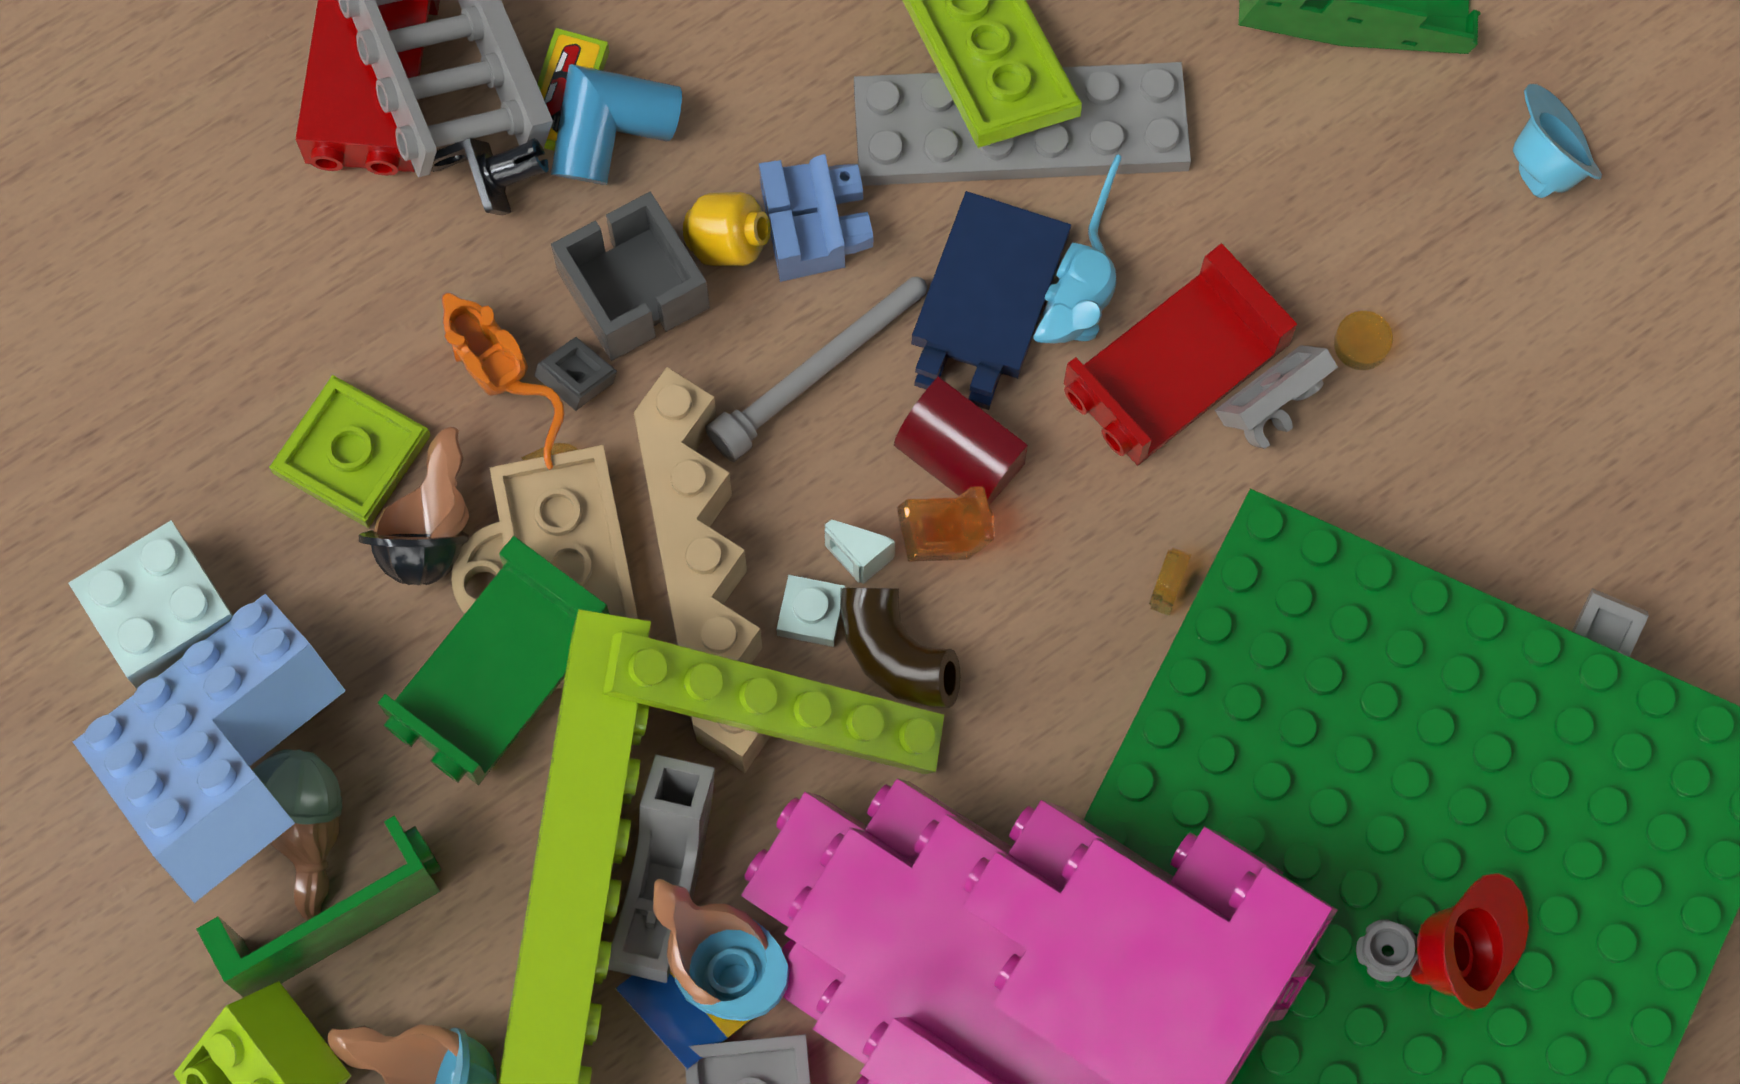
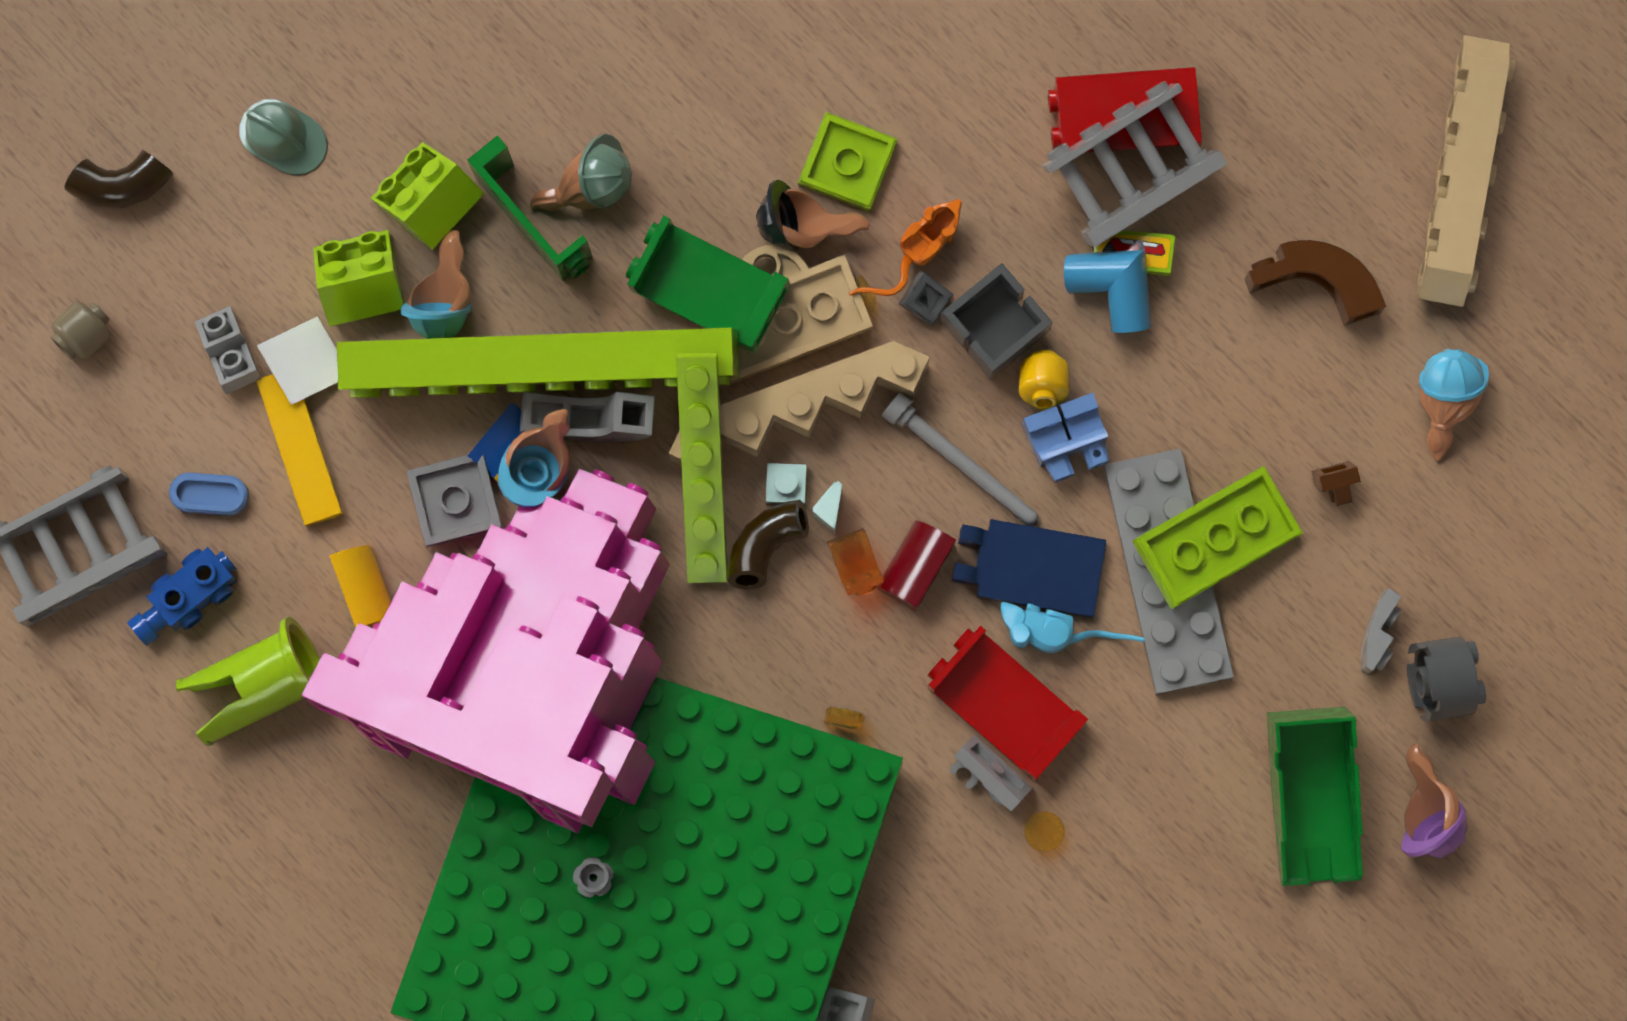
camera: 85 degrees right, 10 degrees up
(151, 603) = (714, 62): light aqua brick -> none
(187, 739) = (625, 102): light blue brick -> none
(496, 171) = (1058, 215): black bracket -> none
(1474, 943) = (601, 929): red piece -> none
(1552, 146) = (1215, 949): medium azure piece -> none

